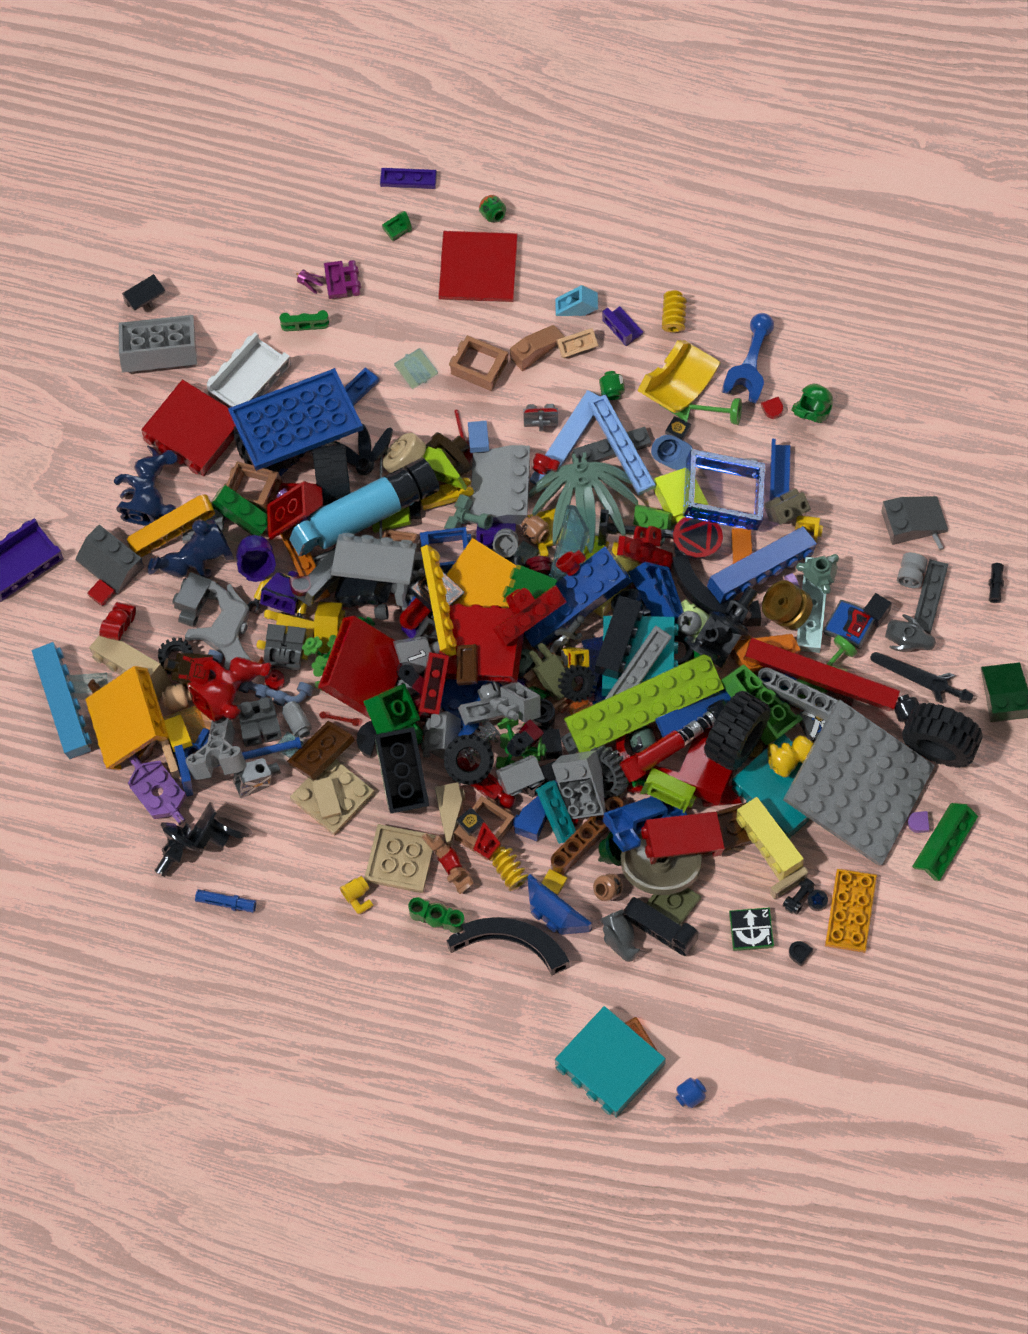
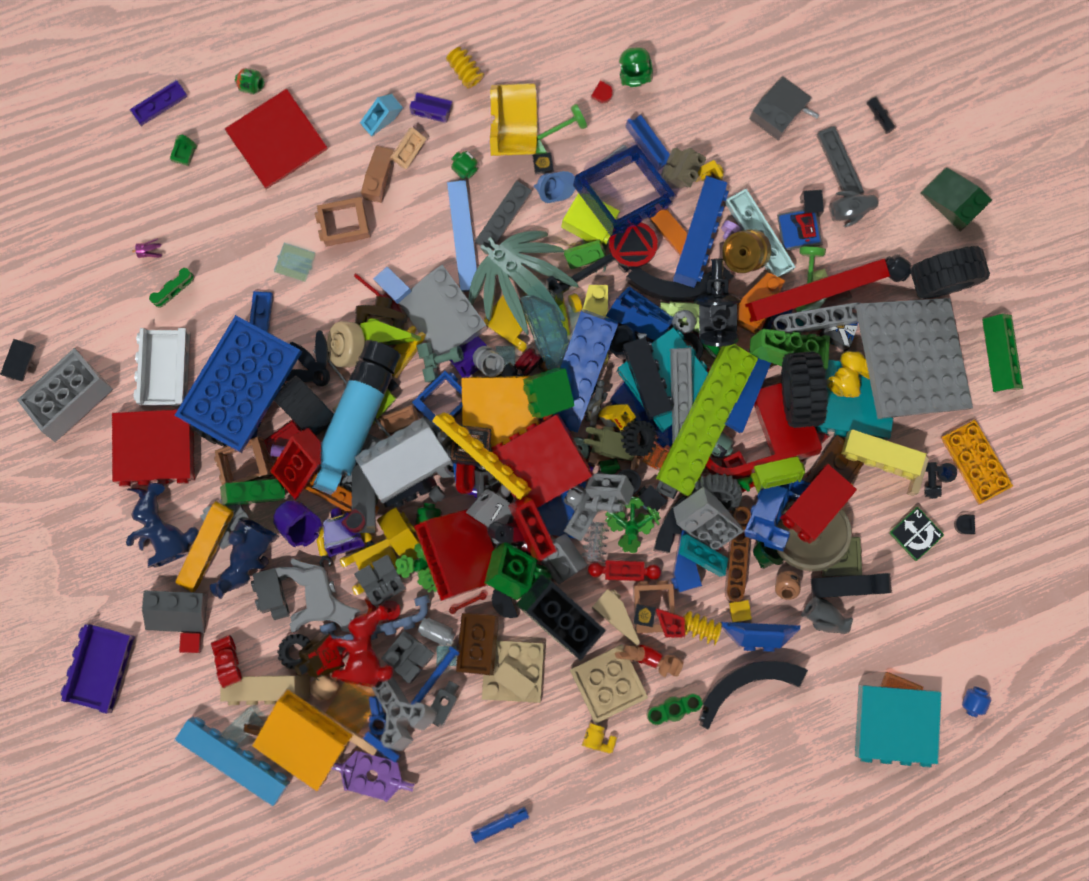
camera: 45 degrees left, 15 degrees up
(177, 732) = (351, 718): yellow tile -> none
(206, 829) = (436, 796): black piece -> none
(336, 280) = (169, 234): magenta plate -> none
(467, 664) = (546, 492): reddish brown tile -> none
(468, 729) = (581, 545): blue tile -> none
(476, 775) = (618, 572): black tyre -> none
(520, 775) = (655, 549): light grey brick -> none
(525, 739) = (640, 518): black leg -> none
(527, 612) = (565, 414): red plate -> none
(535, 529) = (500, 331): nougat head -> none
(540, 416) = (429, 233): flat silver hips -> none
(543, 464) = (464, 271): red piece -> none
(569, 562) = (562, 345): red piece -> none
(622, 445) = (512, 209): light blue tile -> none
(637, 765) = (744, 475): red piece -> none
(644, 548) = (607, 287): red plate -> none
(747, 373) = (562, 78): blue piece -> none
(820, 571) = (749, 203): sand green rock -> none
(912, 568) = (813, 150): light grey wheel -> none
(919, 822) = (972, 352): medium lavender tile -> none
(935, 683) = (890, 232): black sword -> none

